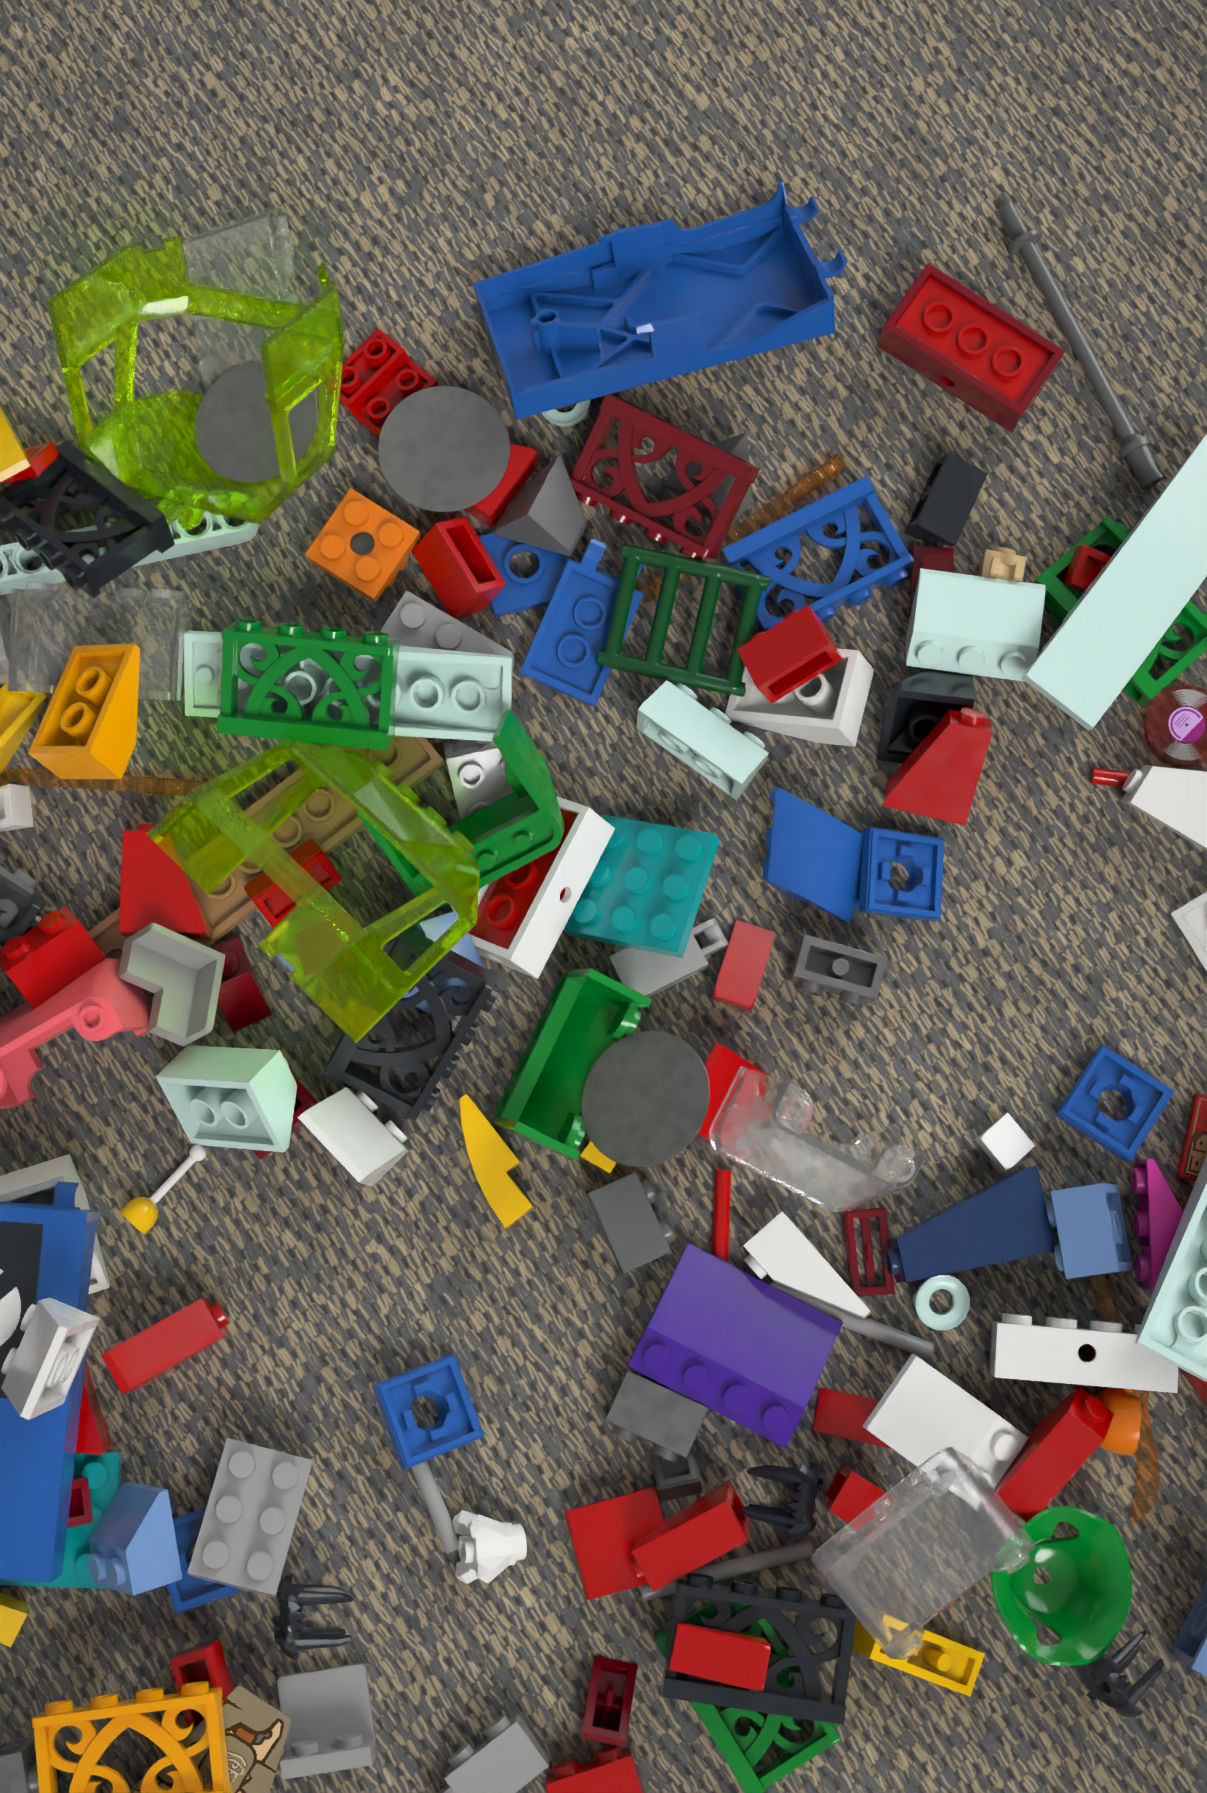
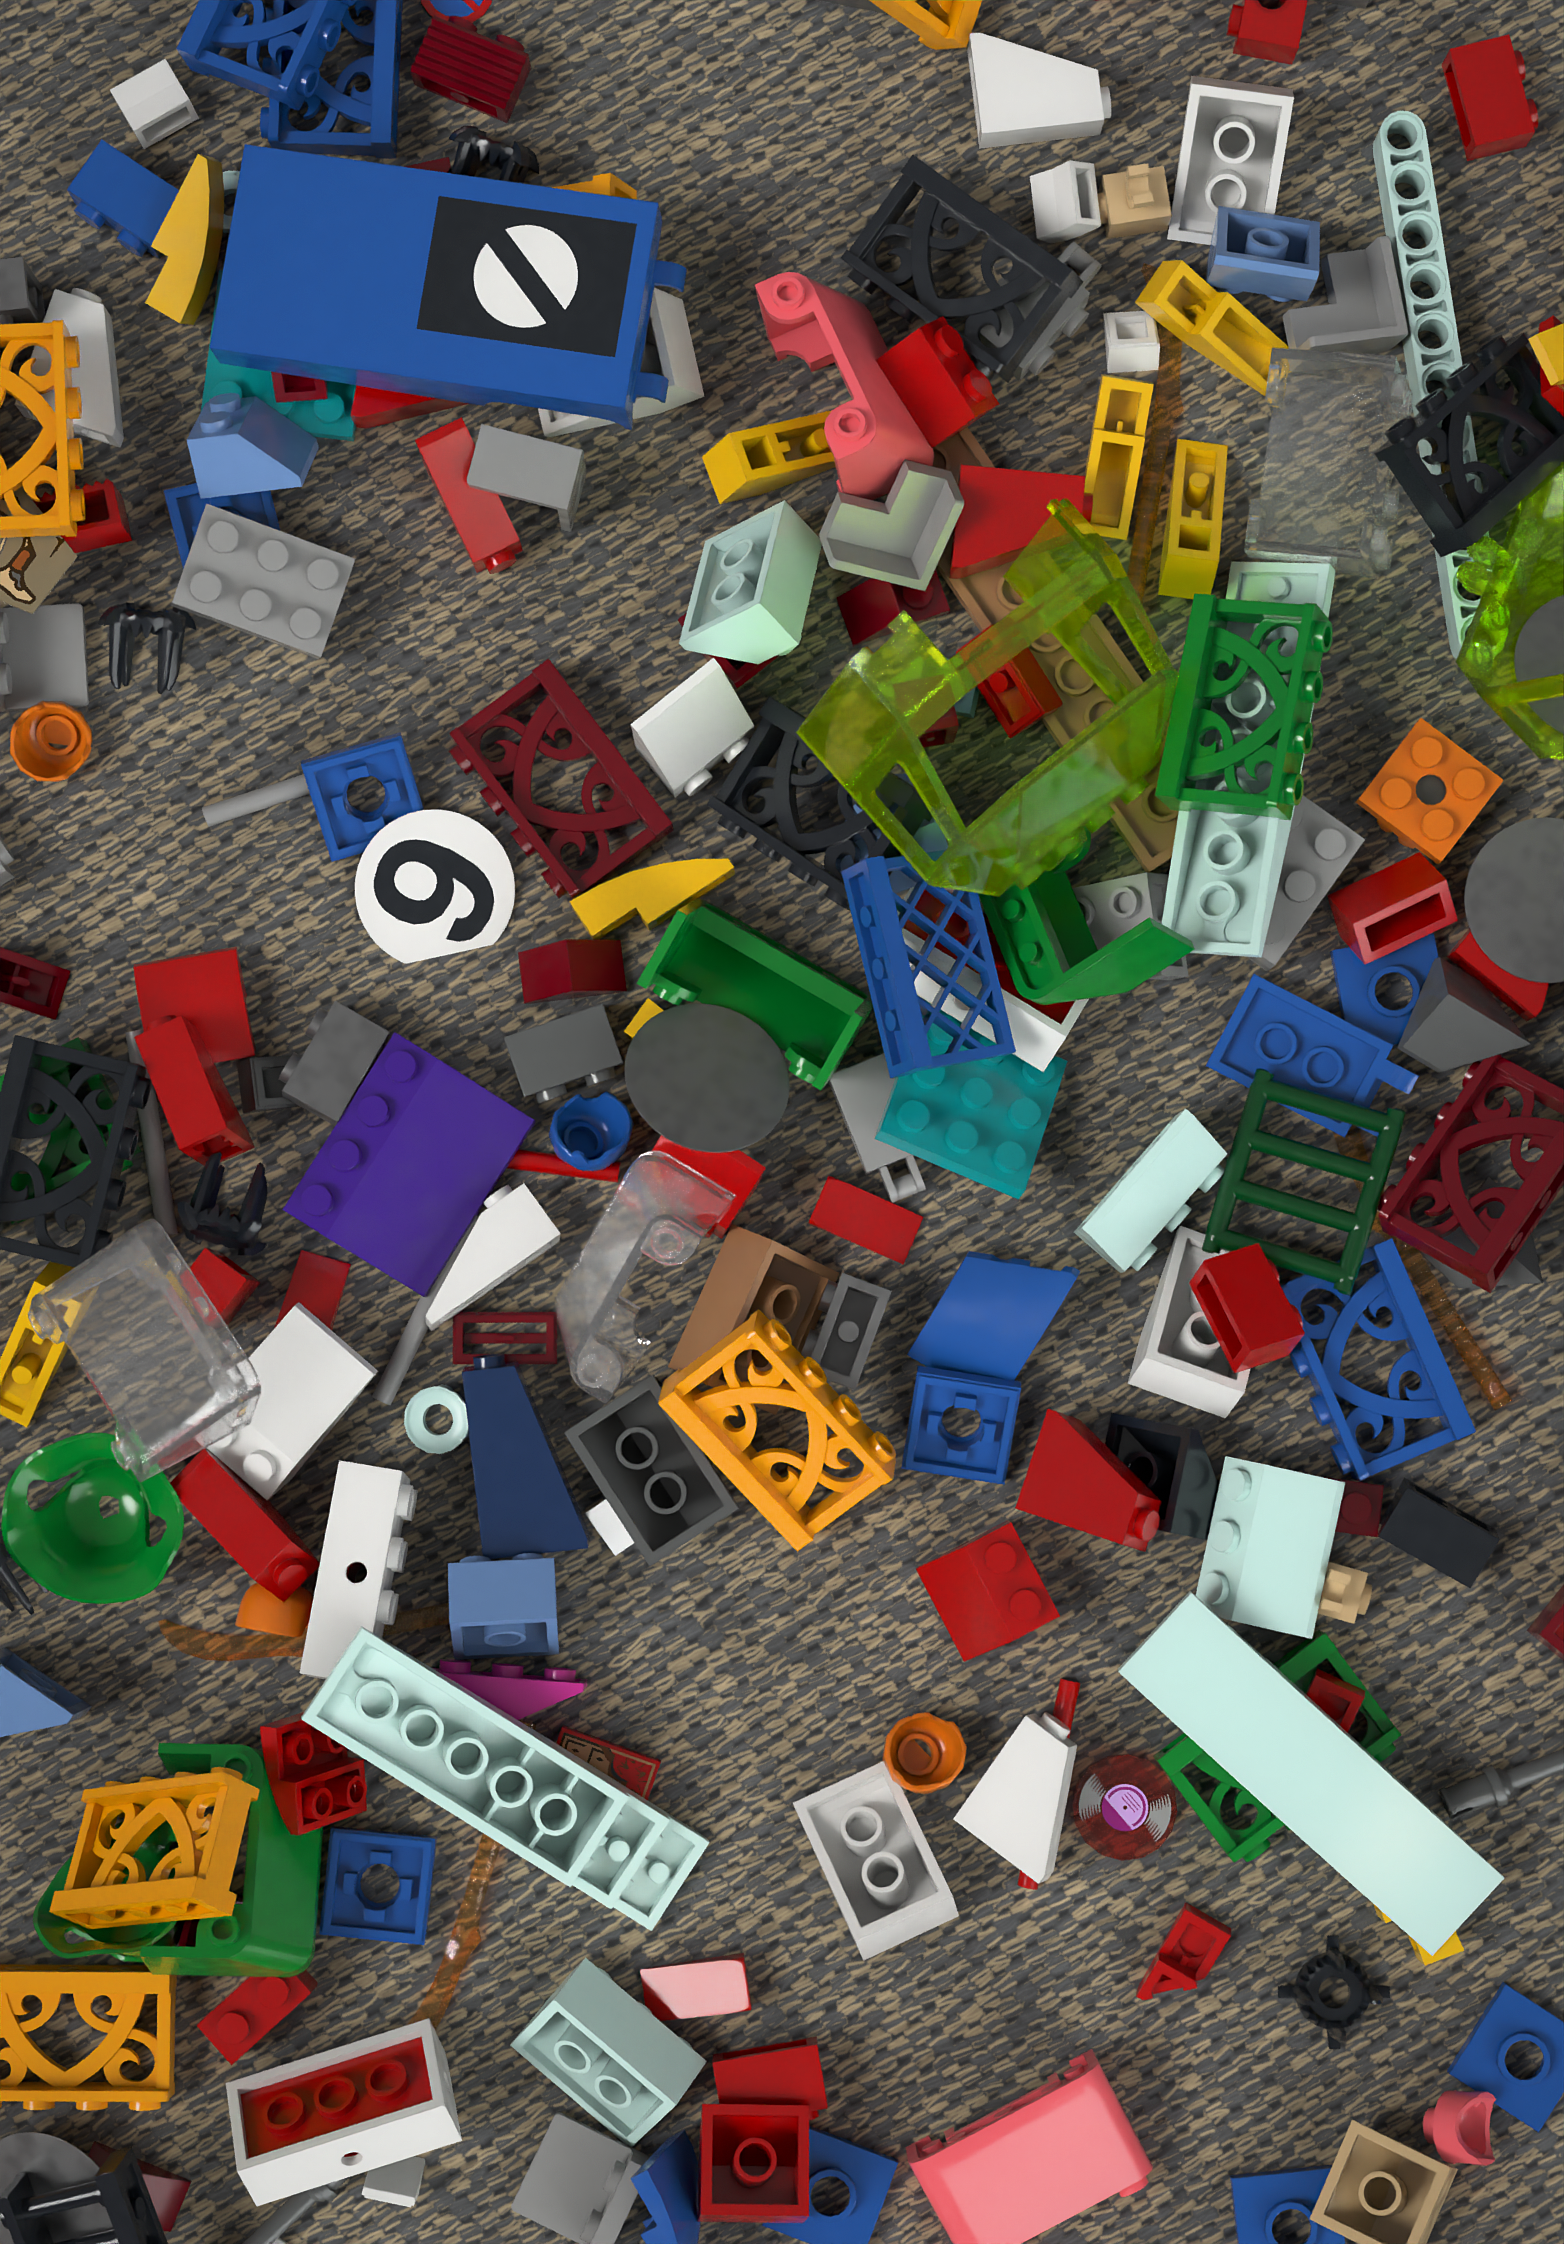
camera: 95 degrees right, 5 degrees up
(47, 1356) = (459, 353): white slope -> none
(75, 1684) = (97, 370): none -> white slope
(92, 714) = (1235, 447): light orange slope -> none
(96, 811) = (1116, 452): none -> yellow slope
(116, 1090) = (768, 457): none -> yellow slope
(142, 1295) = (529, 471): none -> light grey panel
(143, 1211) = (628, 479): hinge -> none
(174, 746) = (1193, 520): none -> yellow slope
(344, 1252) = (559, 711): none -> dark red fence
(384, 1696) = (45, 724): none -> orange hair
(486, 1546) = (205, 853): white rock -> none
(498, 1346) = (434, 886): none -> white sticker
(547, 945) = (892, 979): none -> blue fence
(560, 1223) = (572, 970): none -> dark red slope
(693, 1194) = (591, 1131): none -> blue hair
(720, 1656) = (53, 1105): red slope -> none
(834, 1049) = (750, 1277): none -> medium nougat slope
(961, 1036) = (729, 1448): none -> light orange fence
(968, 1118) = (651, 1472): none -> dark grey slope
(1031, 842) = (987, 1591): none -> red slope
(1142, 1092) = (666, 1695): blue piece -> none
(1179, 882) = (911, 1765): none -> orange hair

